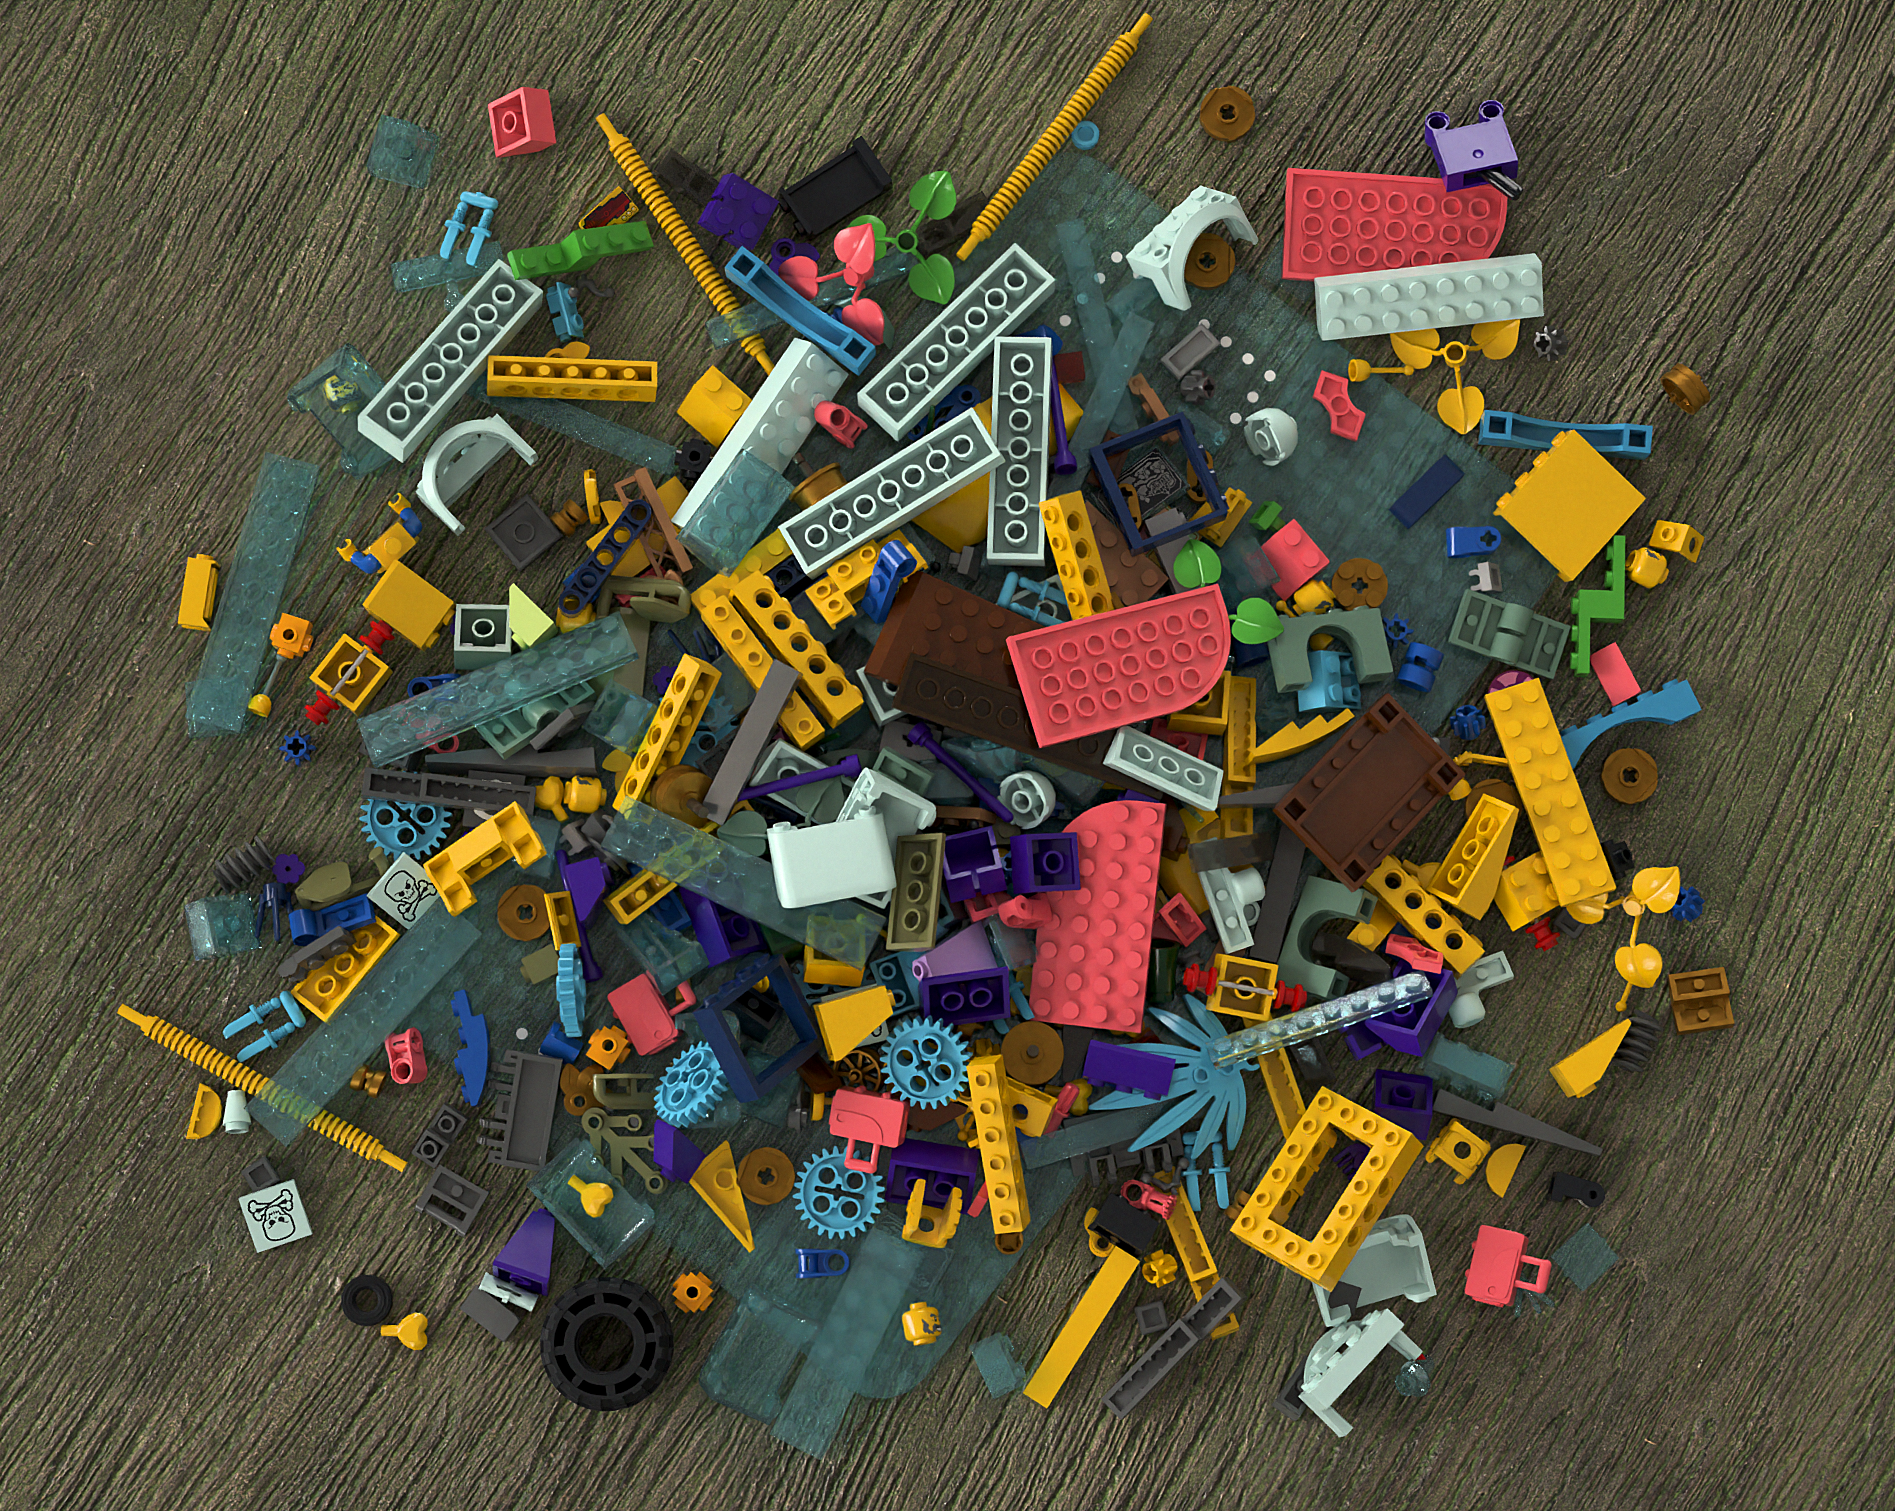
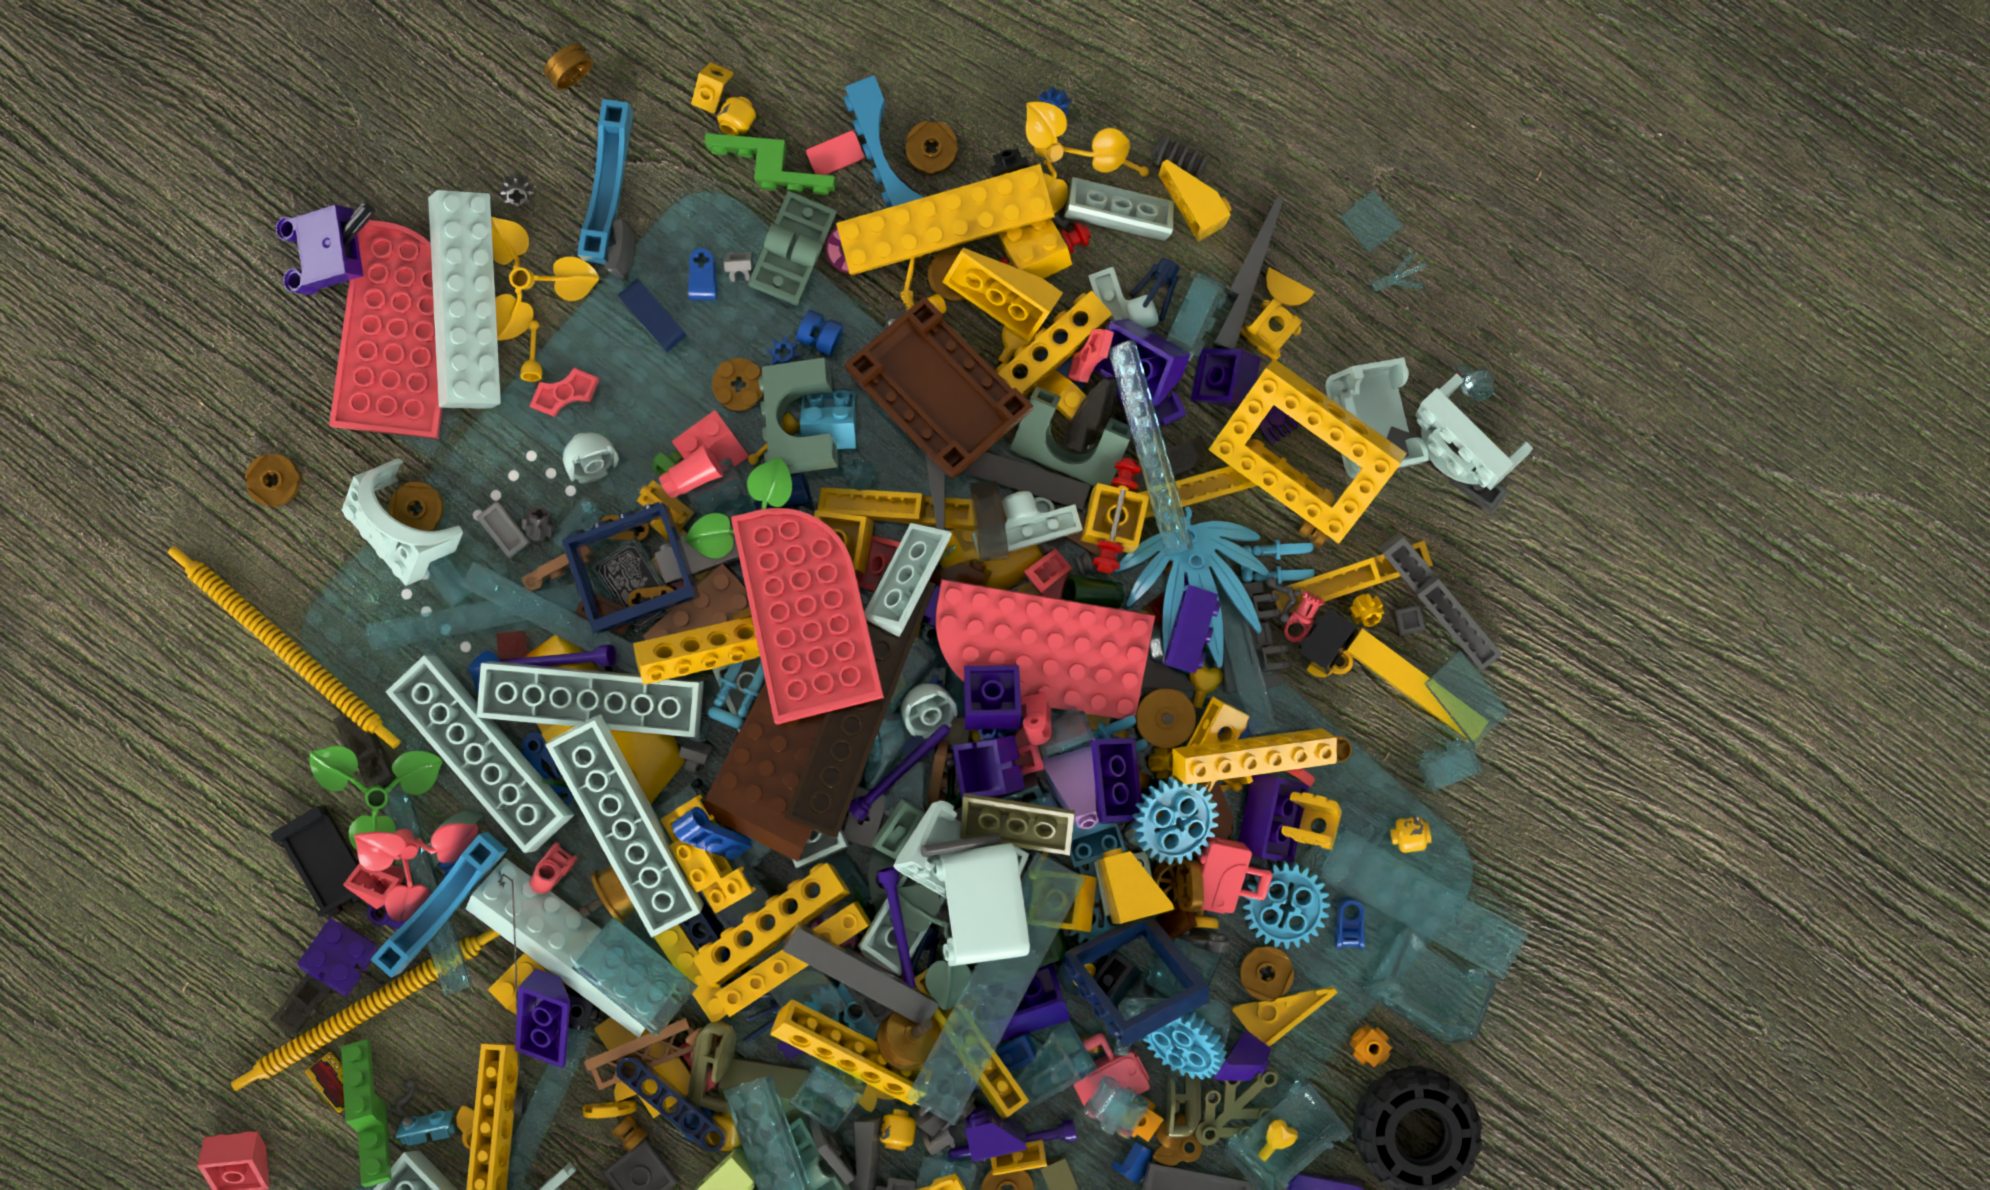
camera: 85 degrees left, 5 degrees up
(550, 796) = (898, 1162): yellow rock -> none
(571, 990) = (1087, 1155): medium azure gear -> none
(601, 405) = (522, 1102): none -> dark grey piece
(622, 1016) = (1116, 1107): none -> clear light blue brick
(686, 422) = (543, 1018): none -> dark purple slope
(816, 242) = (374, 885): none -> coral slope
(857, 1084) = (1190, 885): none -> pearl gold beam
(892, 833) = (961, 844): none -> dark grey bar
(1066, 1099) = (1211, 690): coral axle -> none
(1070, 1382) = (1466, 698): none -> clear light blue piece
(1085, 135) = (285, 616): medium azure tile -> none
(1114, 1037) = (1156, 645): none -> clear light blue tile
(1262, 541) = (691, 472): none -> coral plant
(1294, 740) = (883, 455): yellow slope -> none
(1313, 597) = (748, 428): yellow head -> none
(1468, 722) = (873, 292): blue gear -> none
(1490, 456) = (622, 252): none -> dark grey slope
(1498, 1267) = (1380, 300): coral piece -> none
(1511, 1032) = (1164, 273): none -> dark blue plant
(1569, 503) = (671, 182): yellow panel -> none
(1577, 980) = (1120, 209): none -> light aqua slope
(1584, 1191) = (1309, 225): black leg -> none
(1700, 1001) = (1142, 98): pearl gold slope -> none

